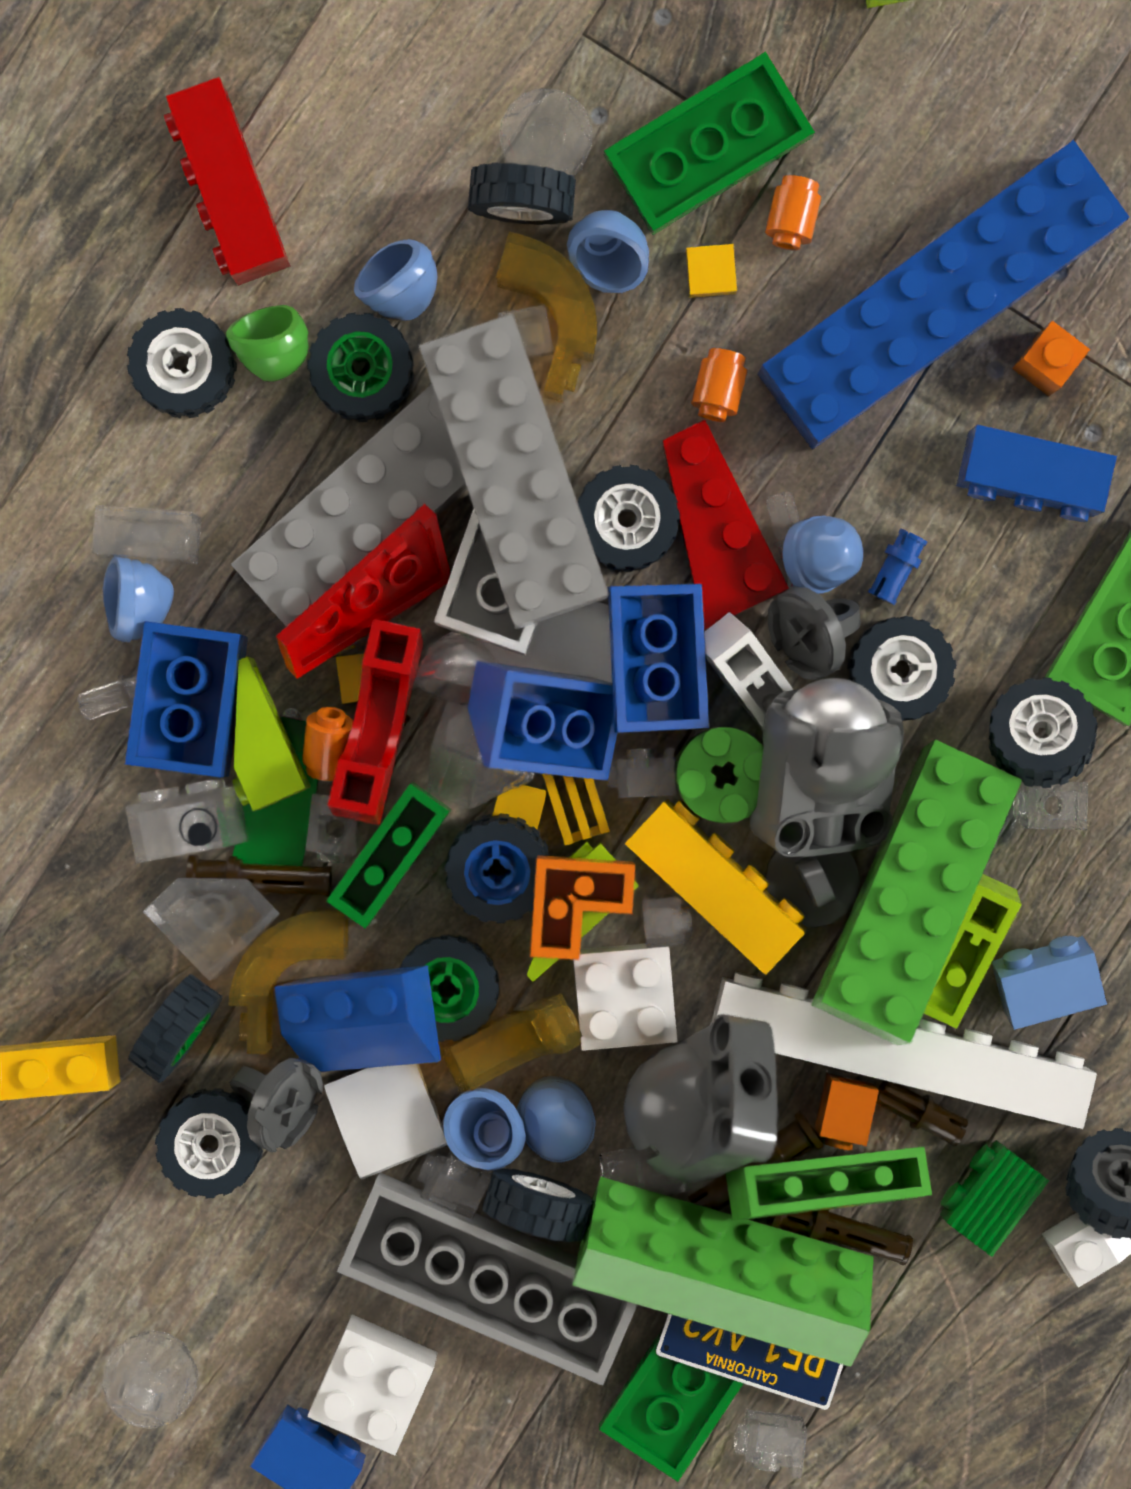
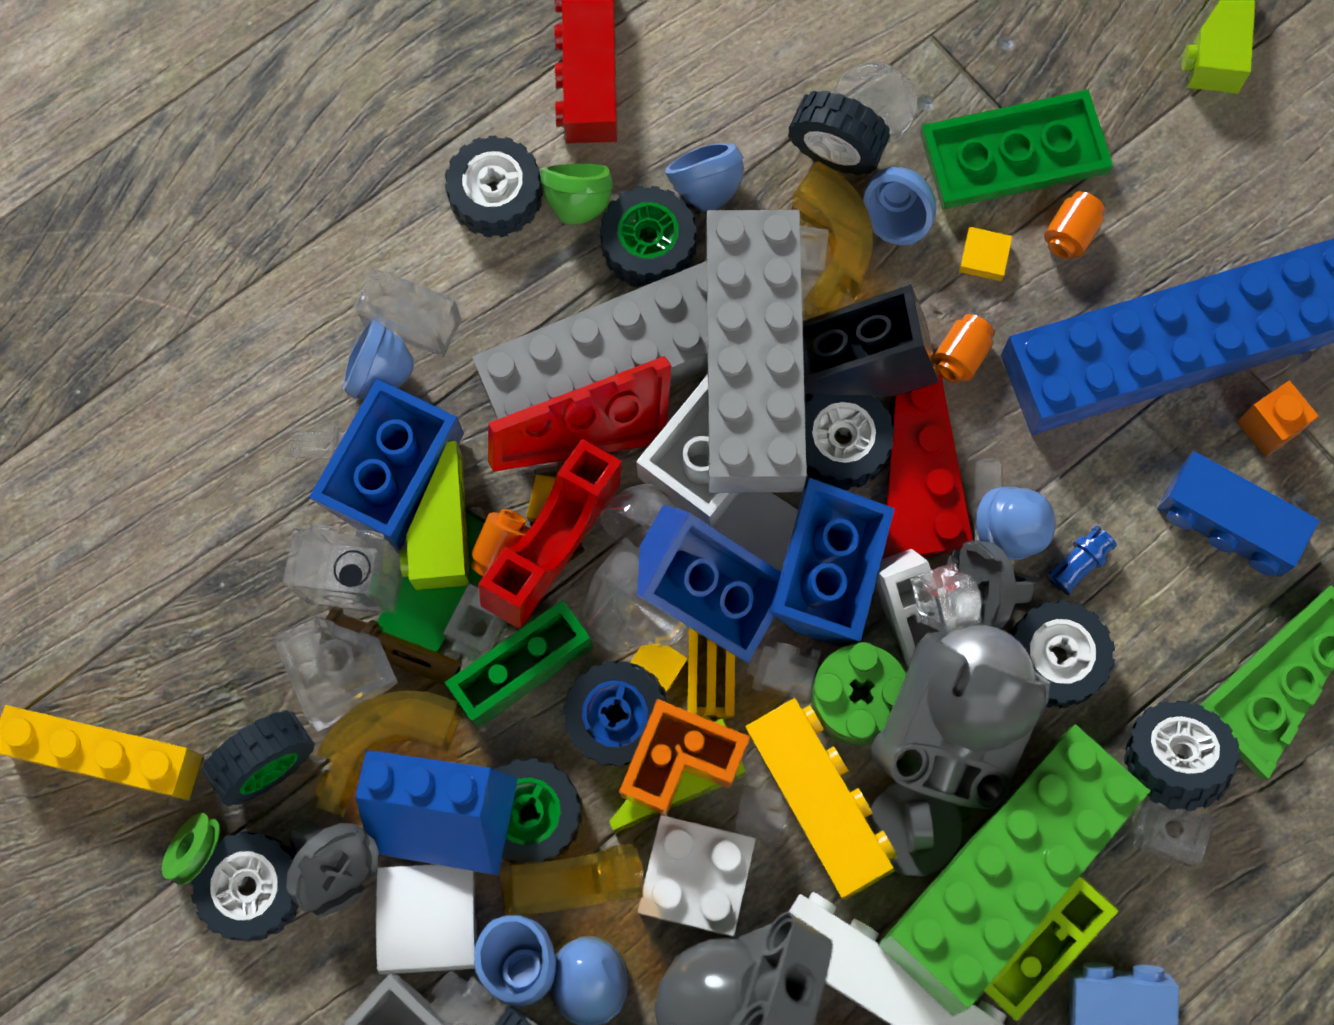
camera: 25 degrees right, 15 degrees down
(152, 1112) = (190, 849): none -> bright green piece
(624, 421) = (869, 348): none -> black slope
(780, 663) = (955, 597): none -> clear brick

